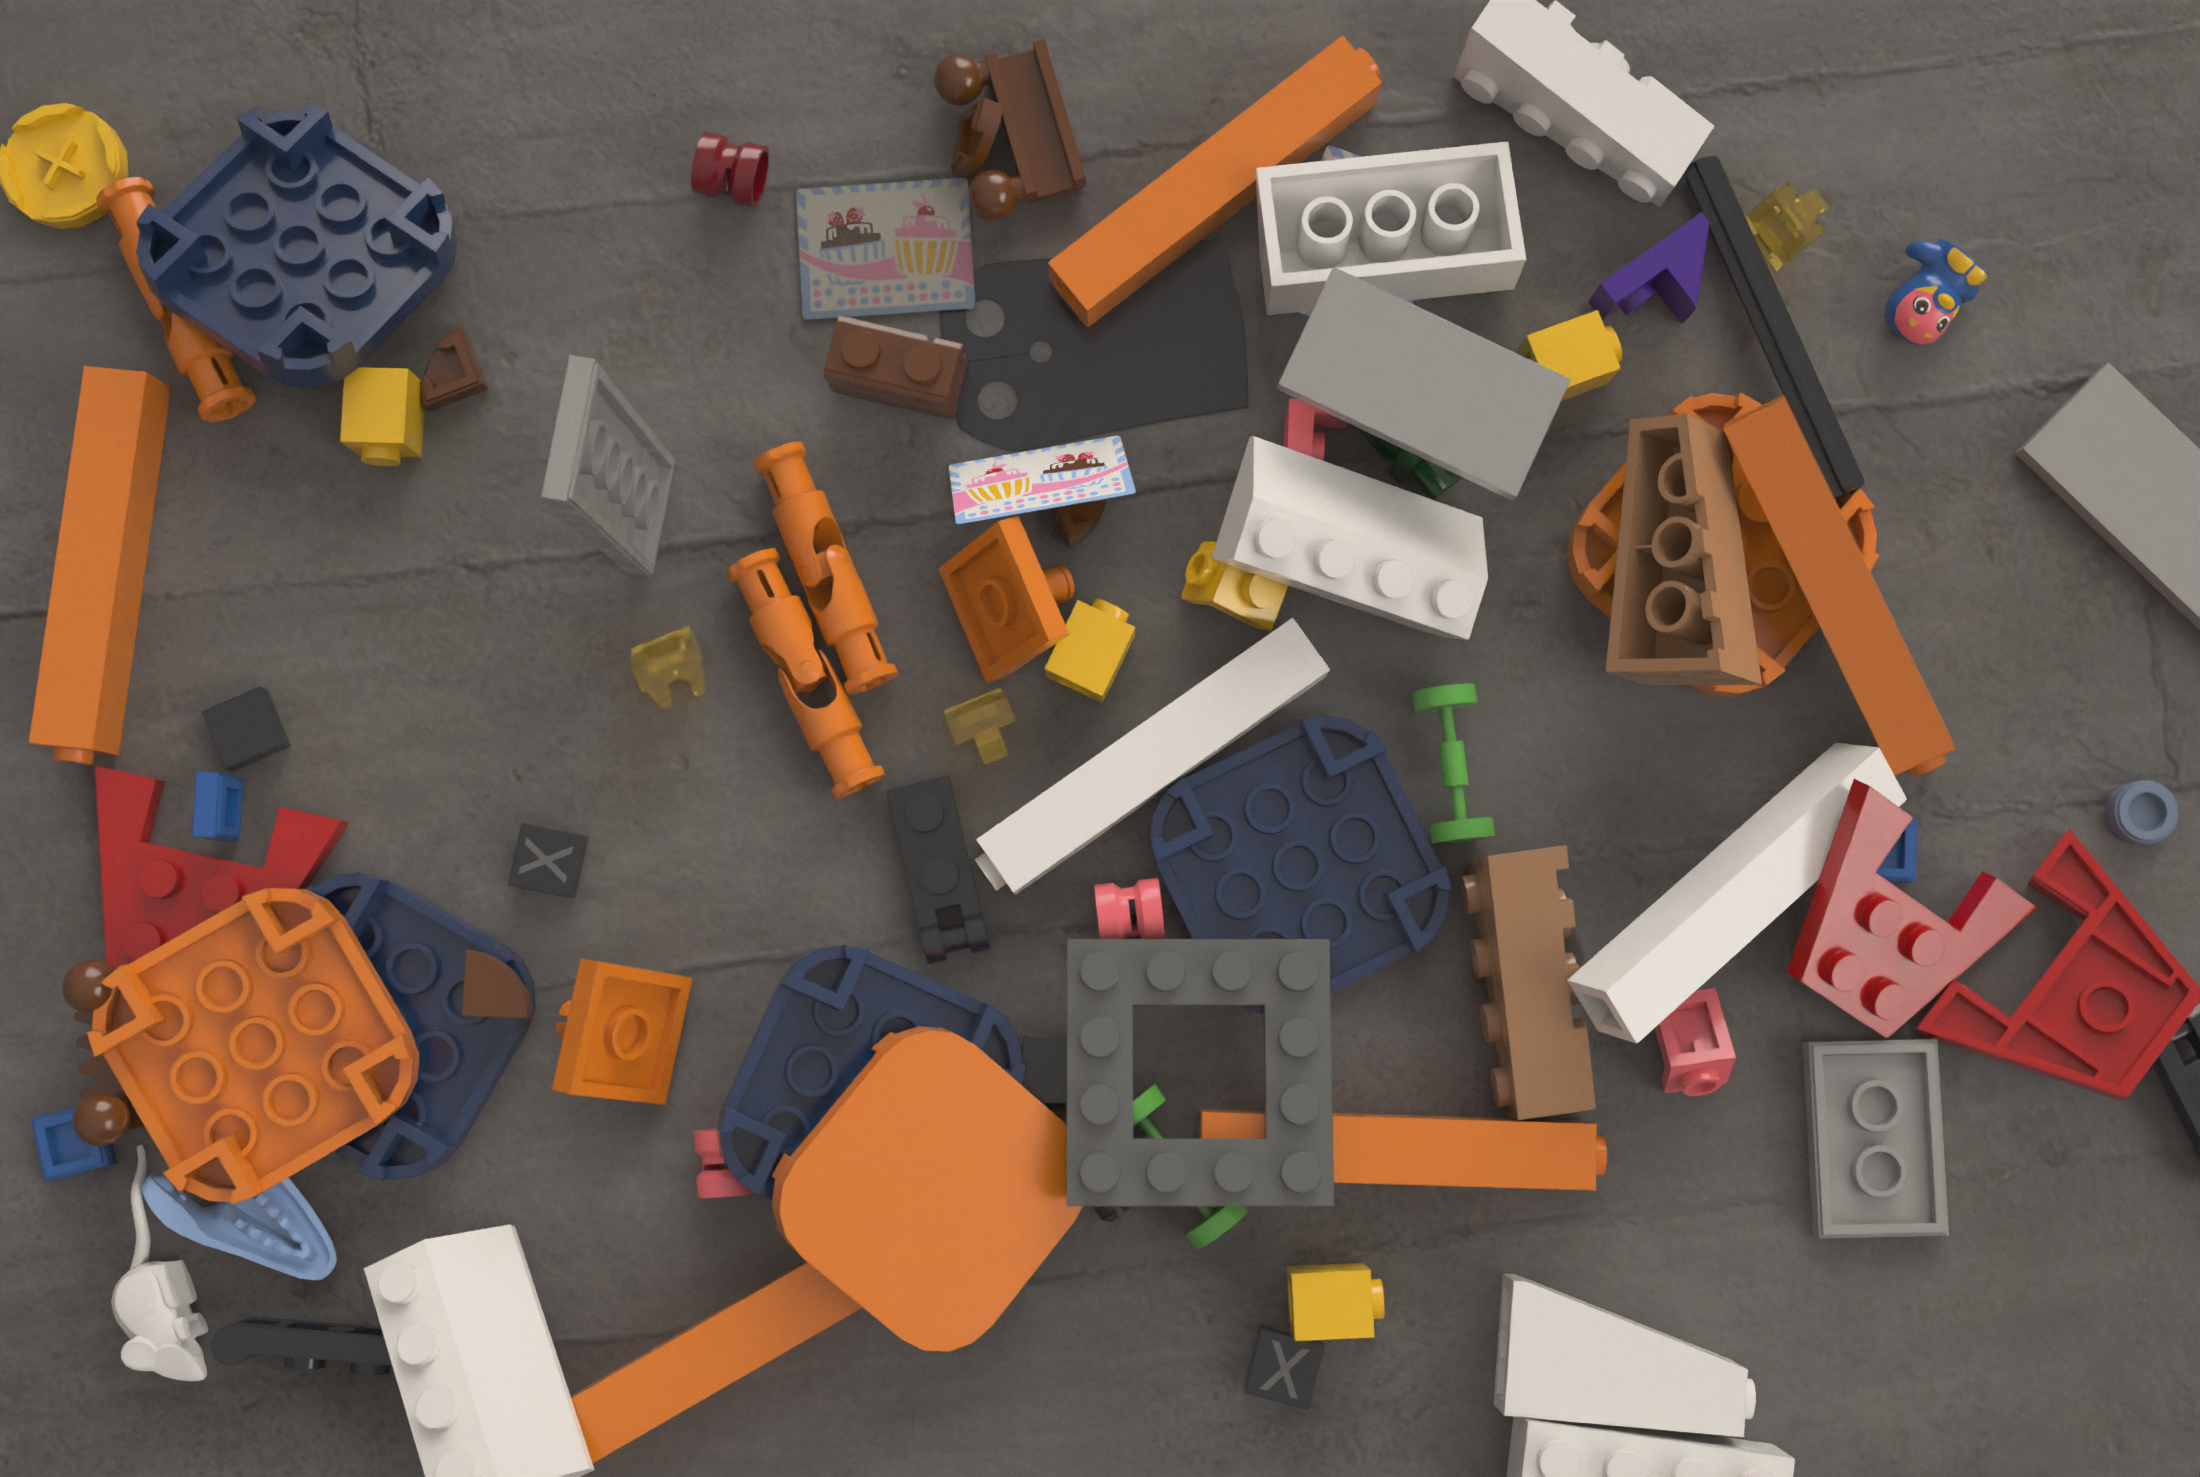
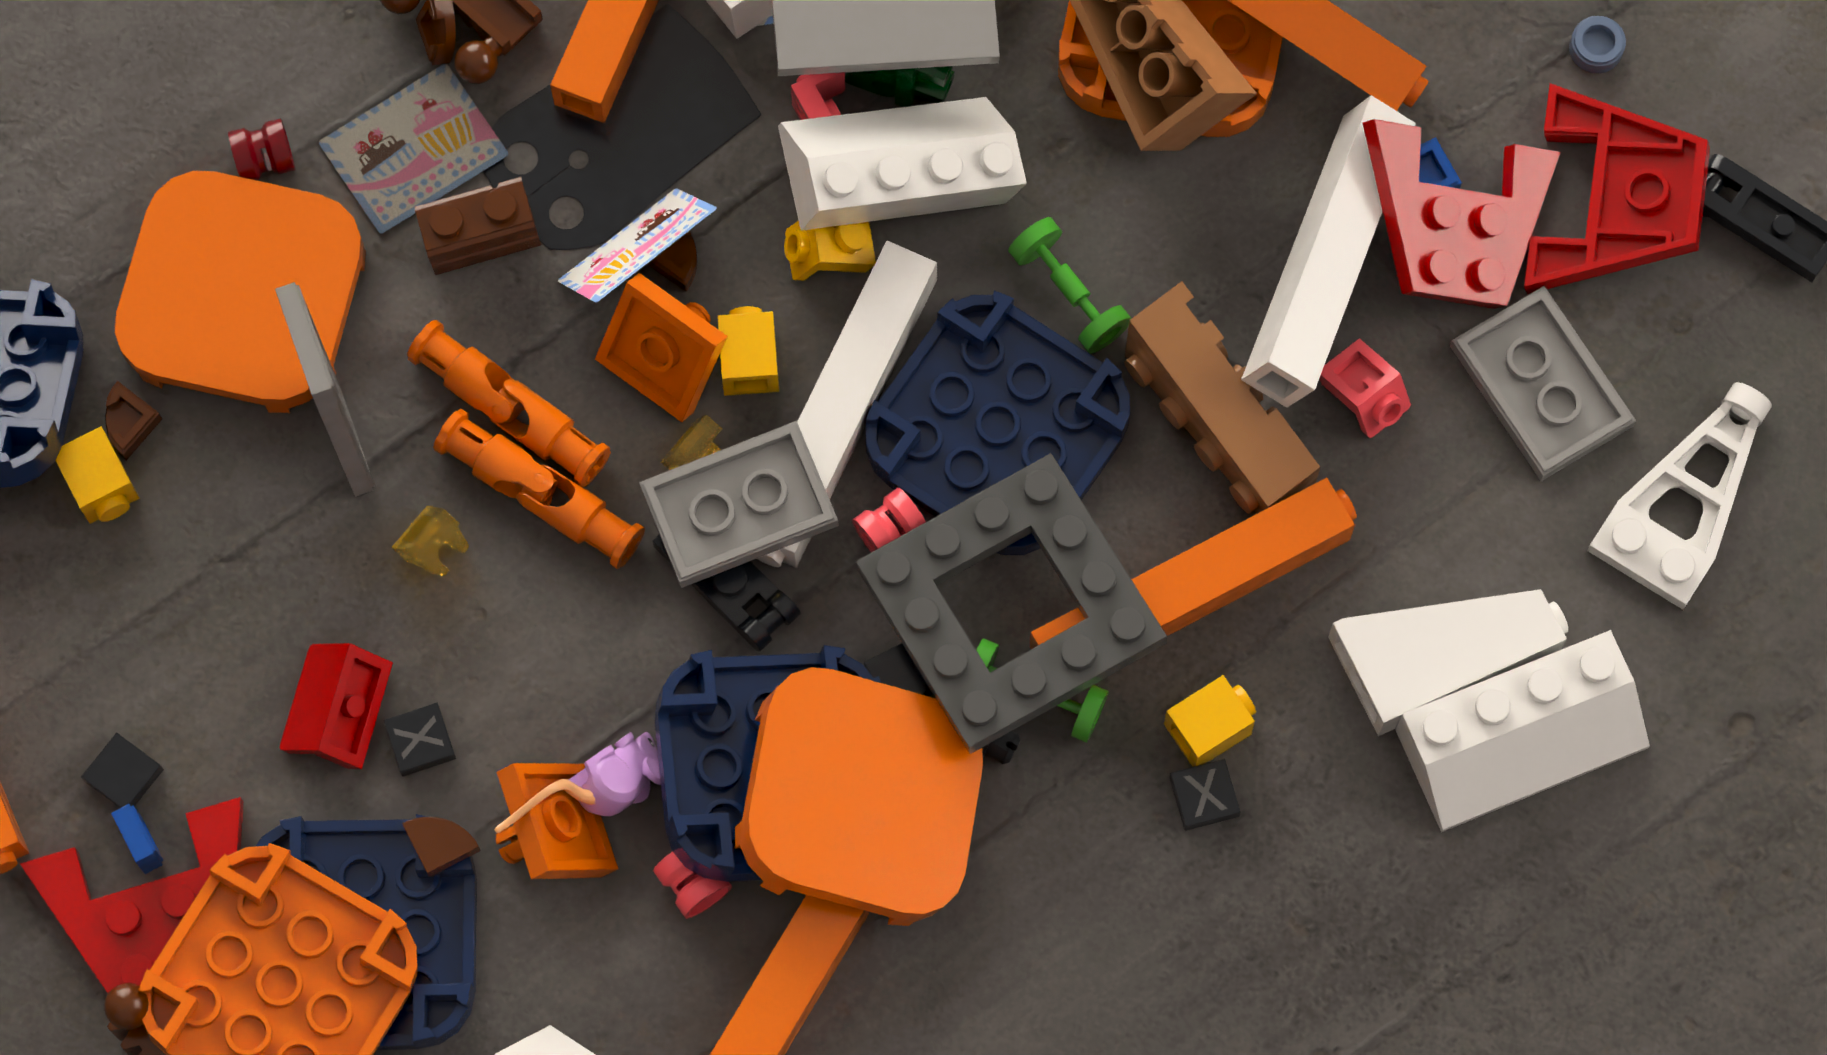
camera: 30 degrees left, 10 degrees down
(485, 781) = (336, 704): none -> red panel
(638, 279) = (205, 280): none -> orange tile
(696, 1019) = (609, 781): none -> lavender animal
(984, 811) = (739, 504): none -> light grey tile
(1883, 1382) = (1652, 552): none -> white plate

